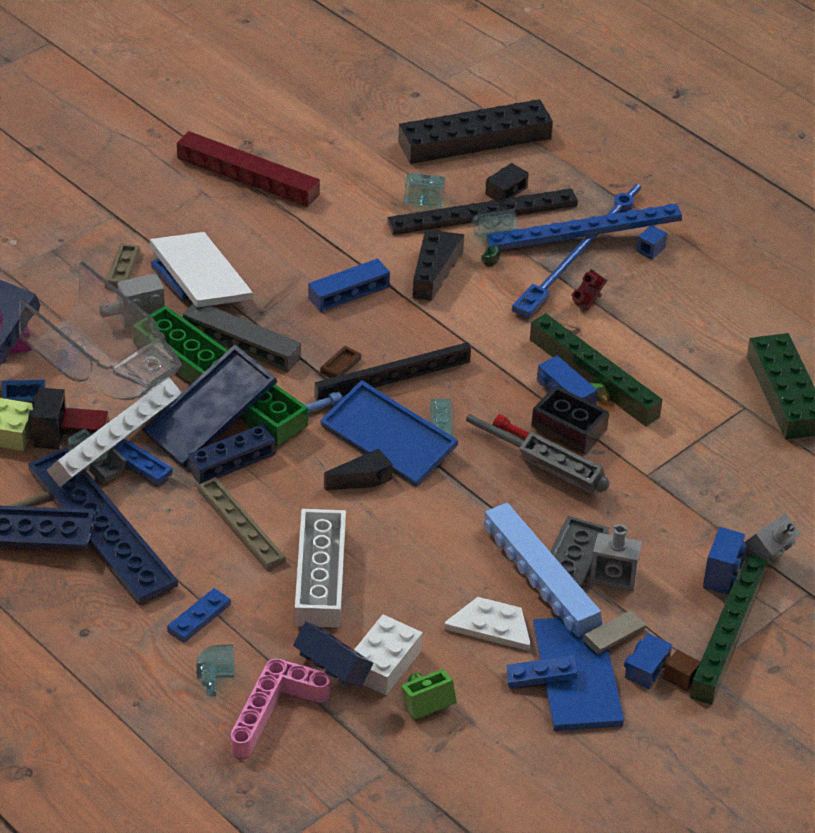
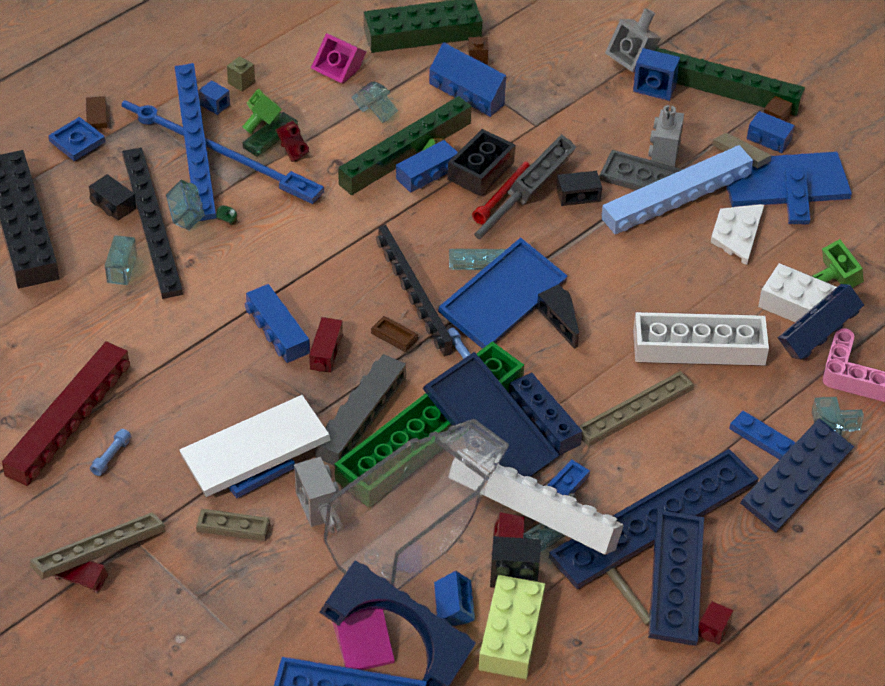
camera: 90 degrees left, 5 degrees up
(79, 182) = (87, 574): none -> dark red hinge
(98, 184) = (97, 545): none -> dark tan tile
(143, 631) = (796, 475): none -> dark blue plate
(219, 201) = (99, 465): none -> medium blue bar
(321, 314) = (326, 344): none -> dark red brick
(436, 258) = (245, 254): black wedge -> none
(543, 495) = (579, 188): none -> black brick
(585, 161) = (76, 138): none -> blue plate
(614, 286) = (266, 136): none -> clear green plate
(626, 173) = (96, 112): none -> reddish brown tile
(629, 265) = (263, 110): none -> bright green brick
(657, 345) = (375, 97): none -> clear light blue brick
(687, 257) = (240, 73): none -> olive brick
(694, 414) = (469, 79): none -> blue slope
(725, 325) = (338, 58): none -> dark pink slope
(748, 425) = (478, 48): none -> reddish brown brick

